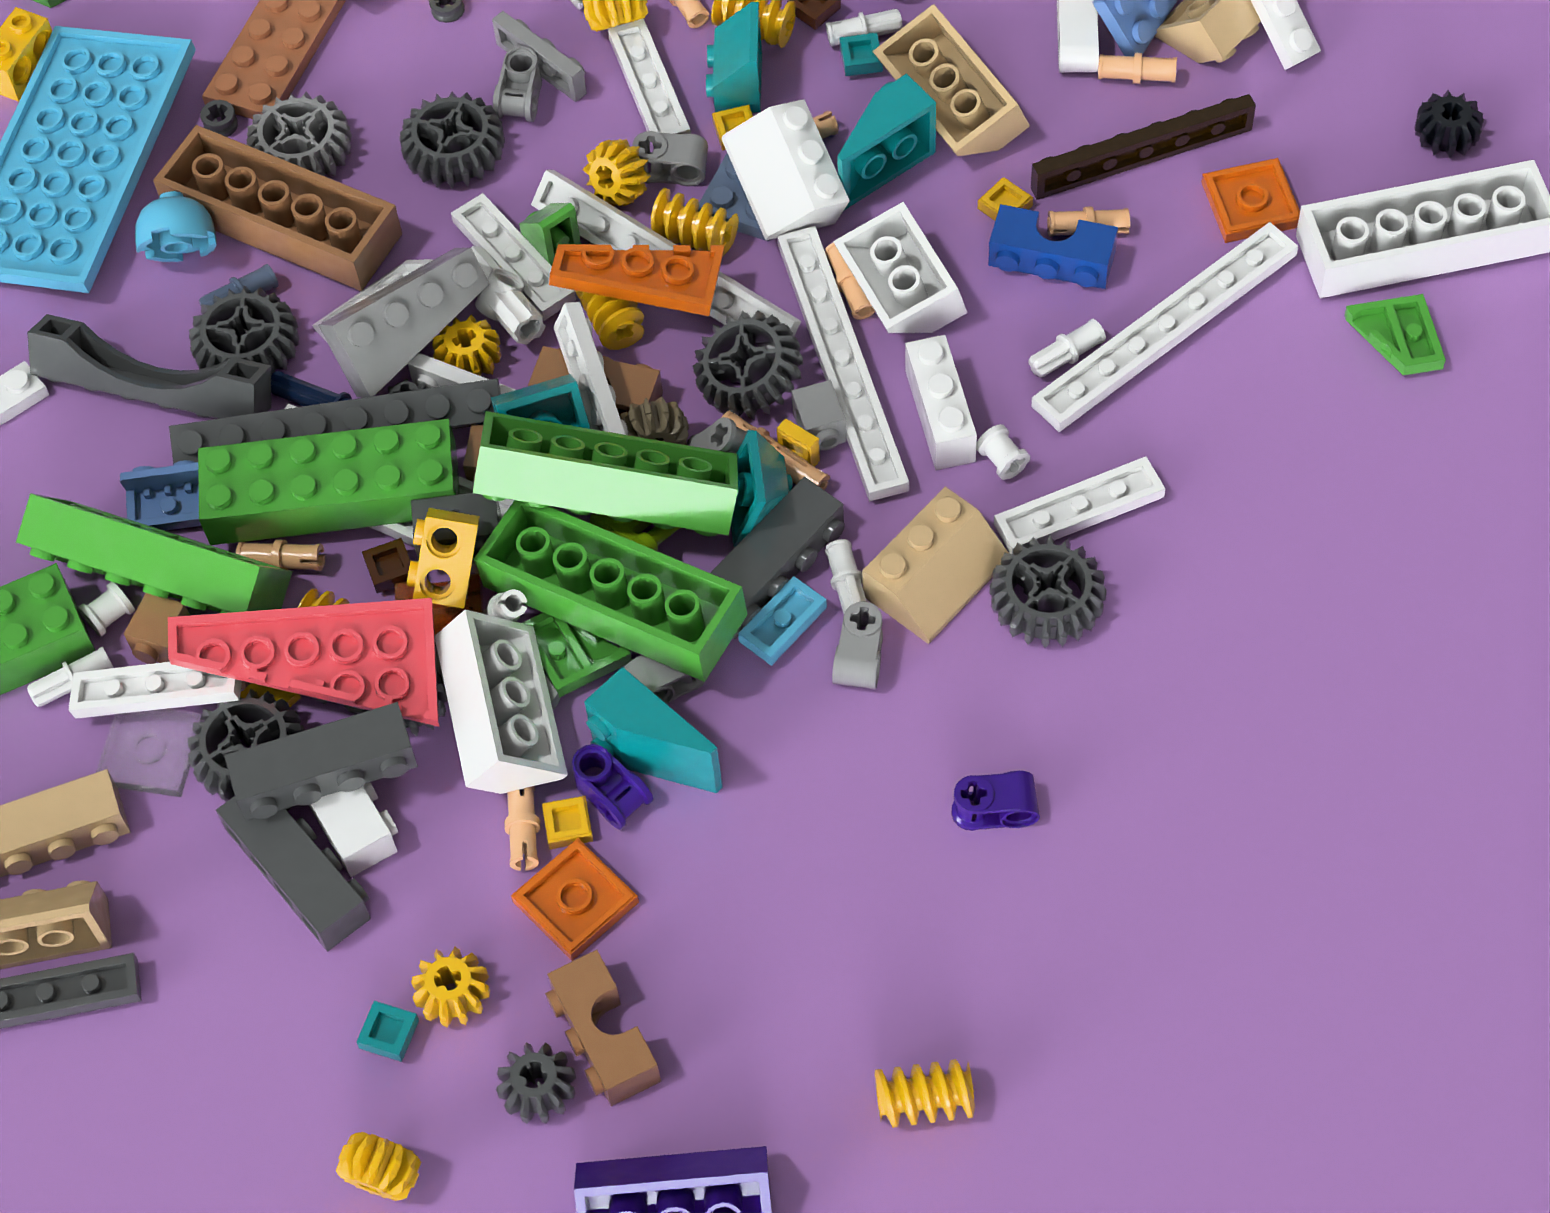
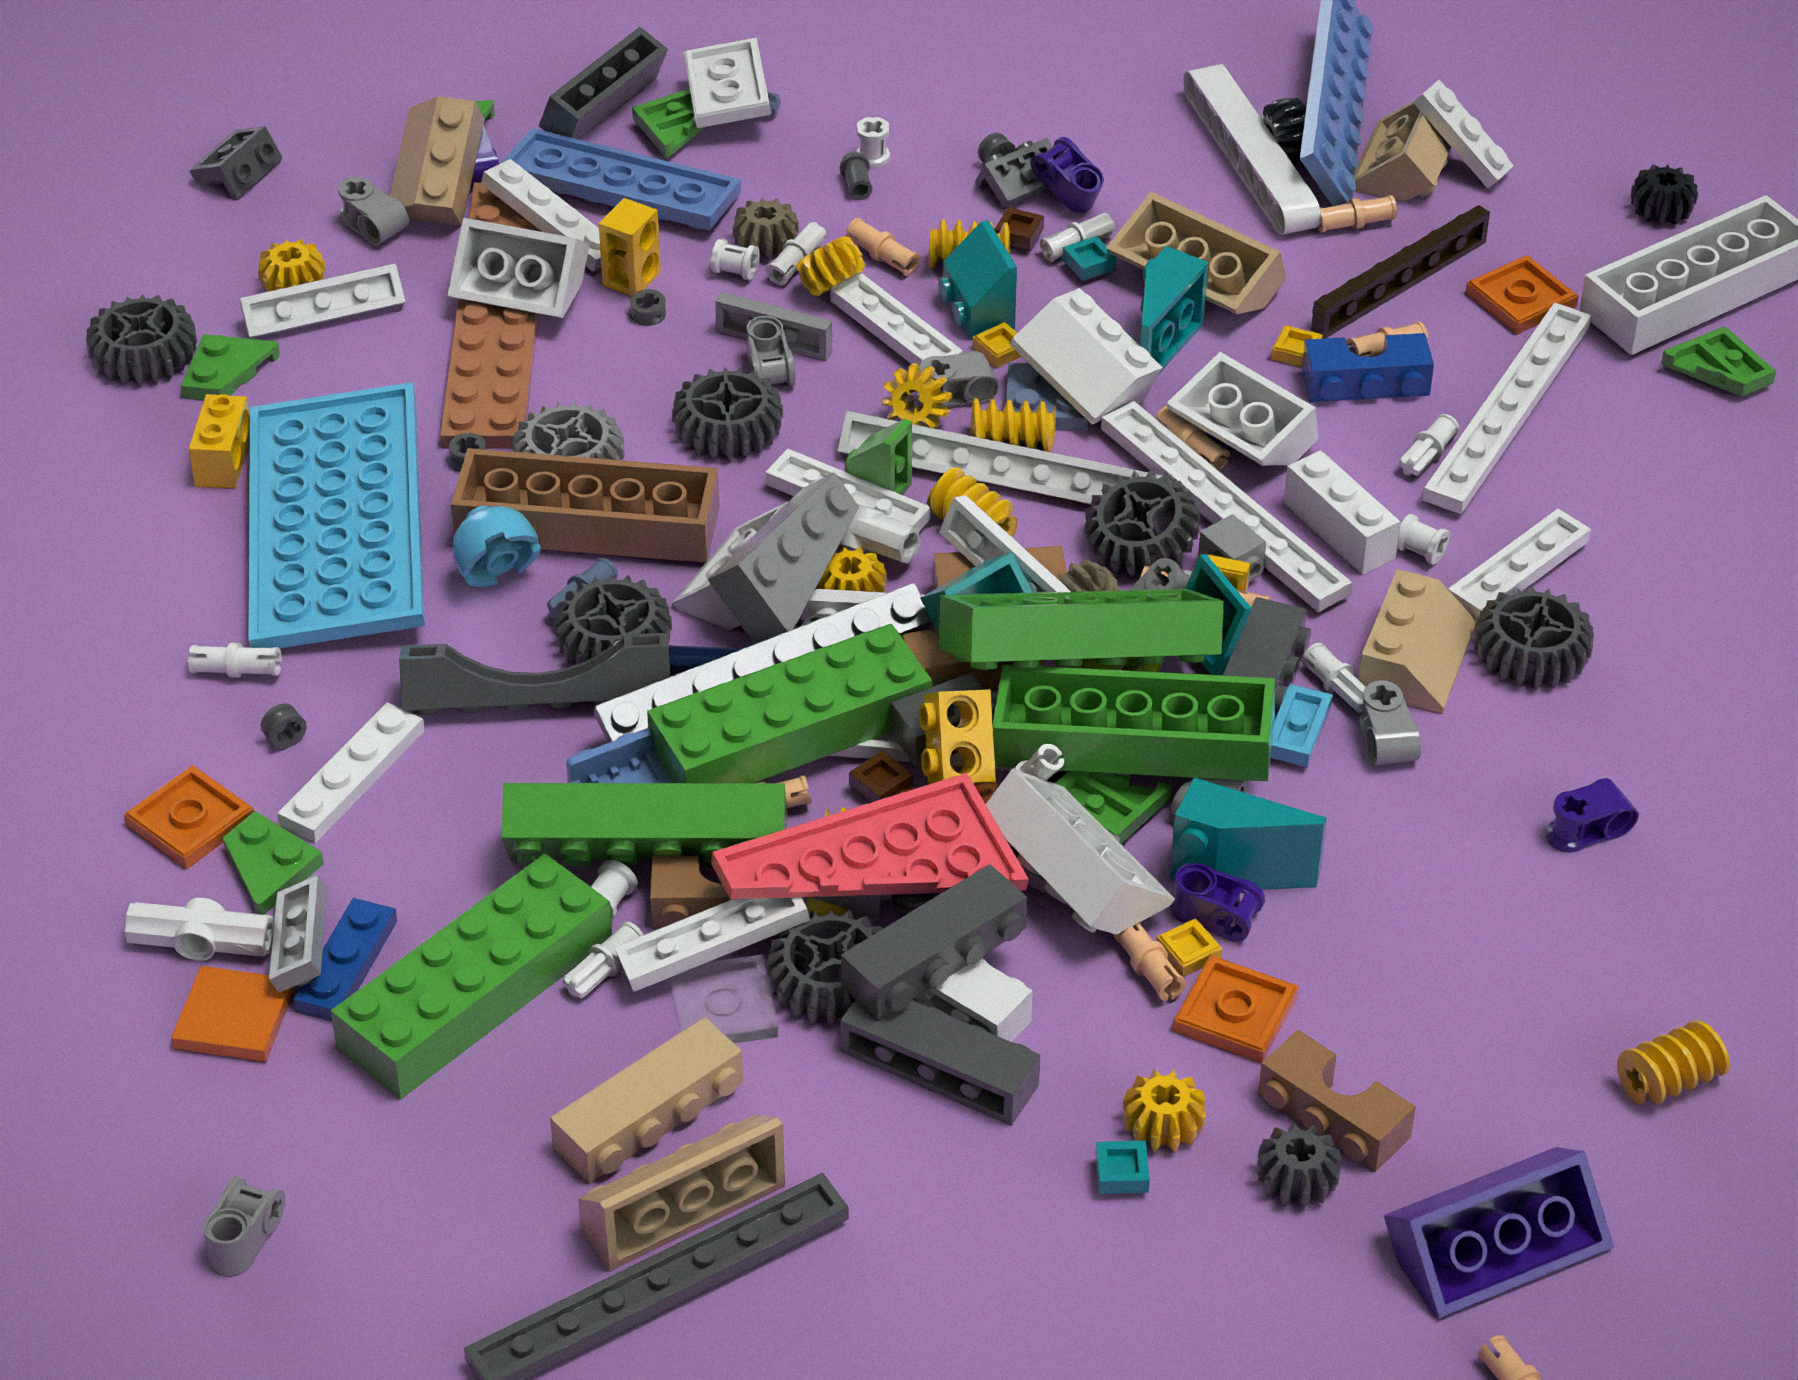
camera: 25 degrees left, 15 degrees down
(378, 1166) = (1192, 1274): yellow gear -> none
(661, 278) = (996, 467): orange wing -> none

